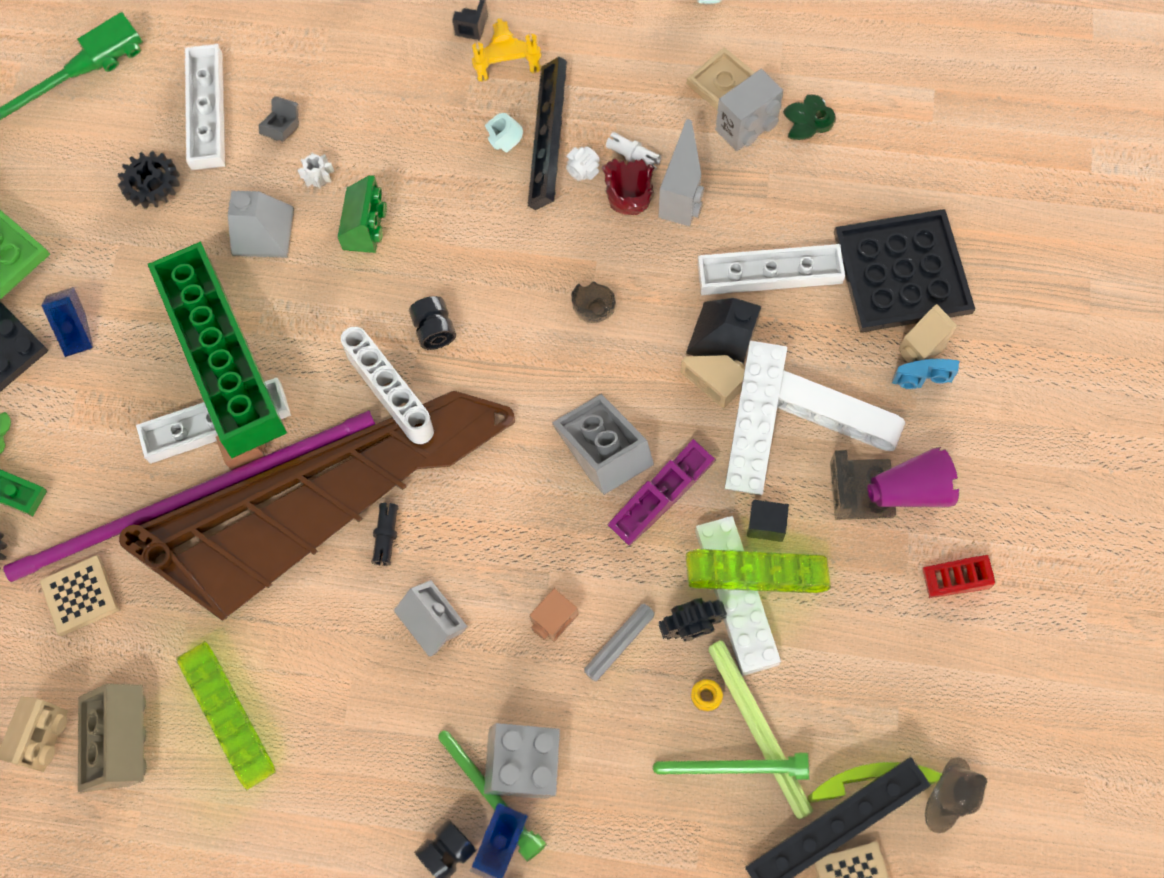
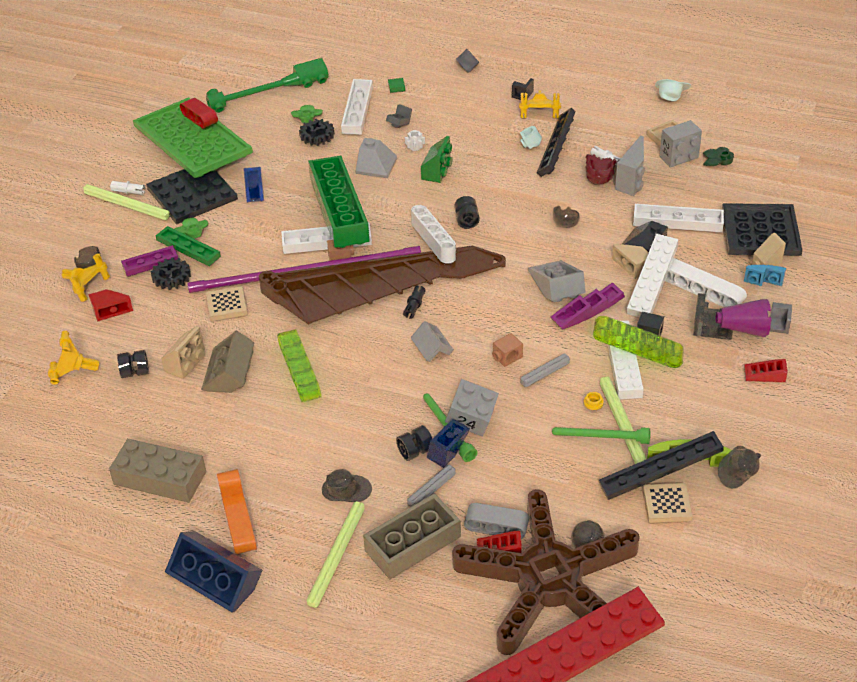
camera: 10 degrees right, 25 degrees down
(123, 135) = (306, 113): none -> bright green plate
(260, 42) = (396, 85): none -> green tile
(582, 163) = (574, 156): white gear -> none
(692, 619) = (592, 358): black gear -> none
(967, 459) = (780, 317): none -> flat silver panel

